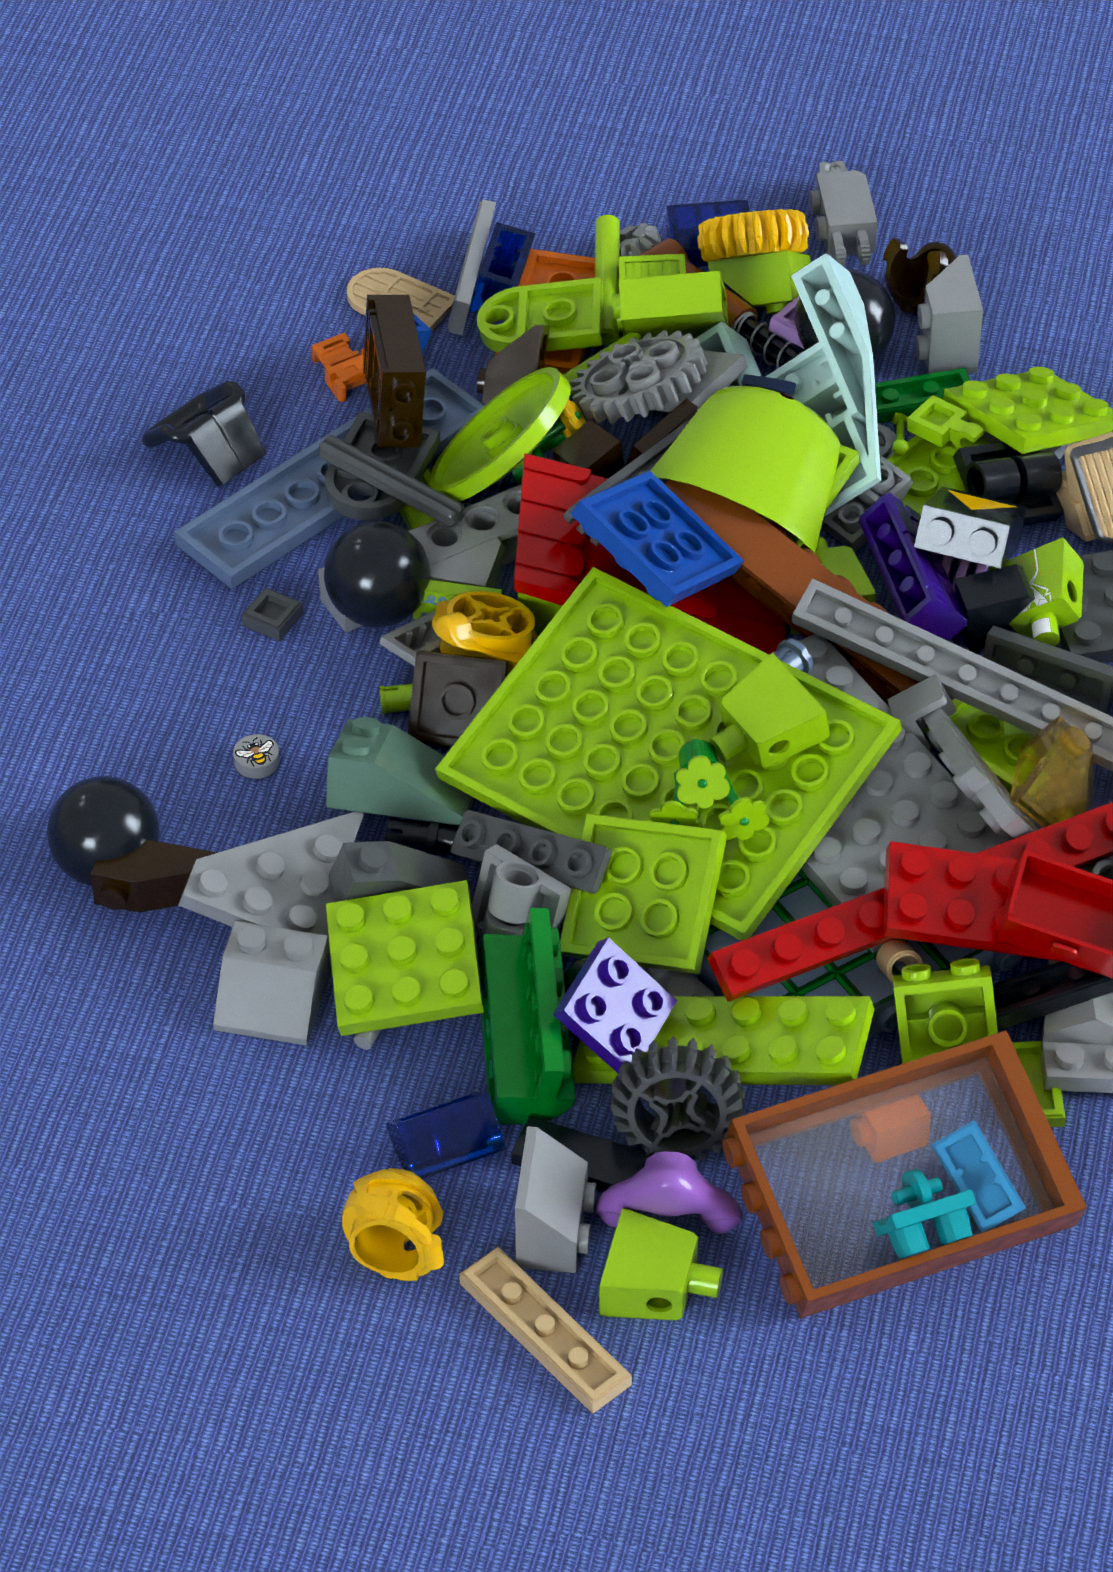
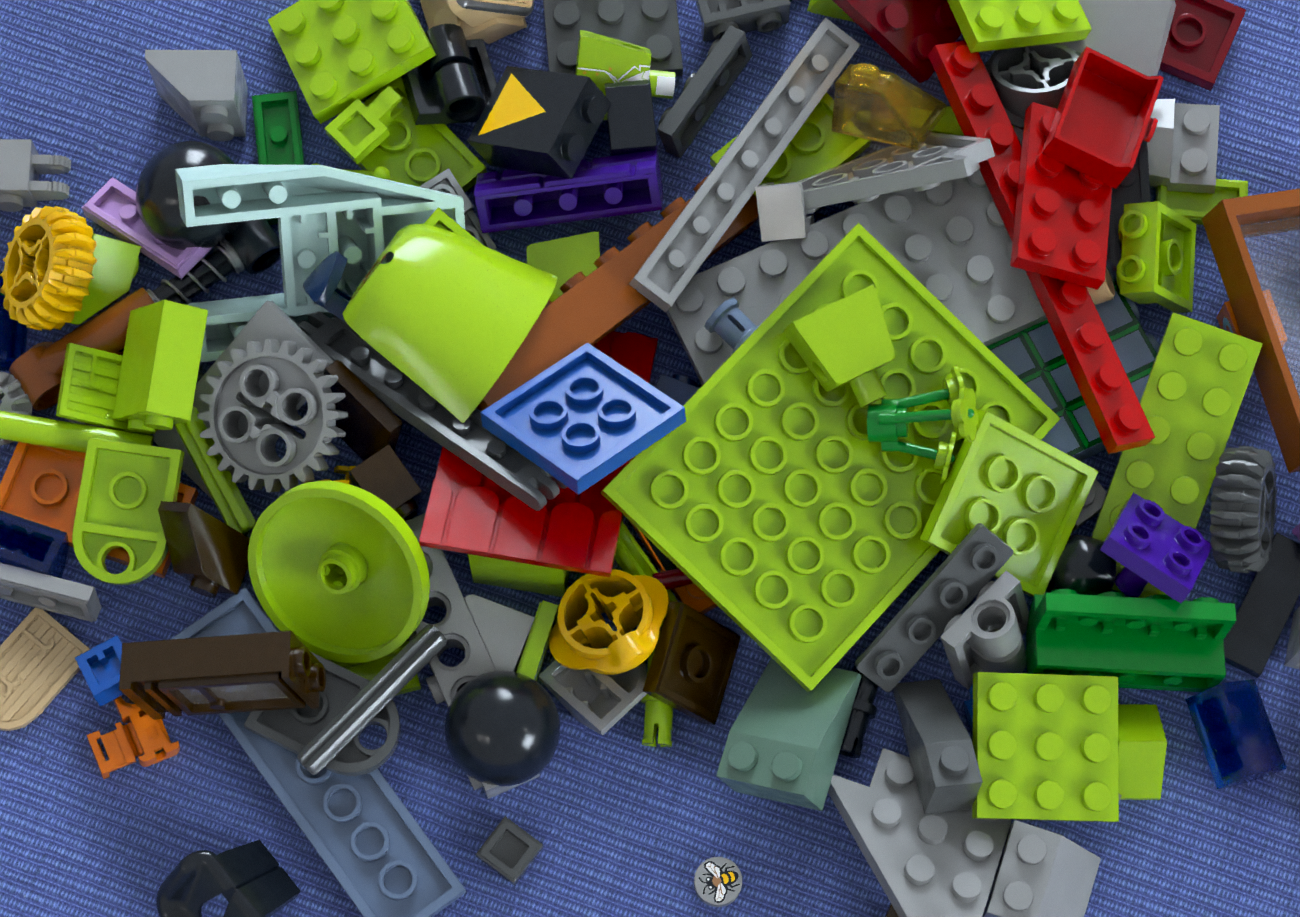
camera: 85 degrees left, 25 degrees up
(419, 1055) = (1141, 752): none -> lime slope
(909, 276) = (122, 108): dark brown helmet -> none

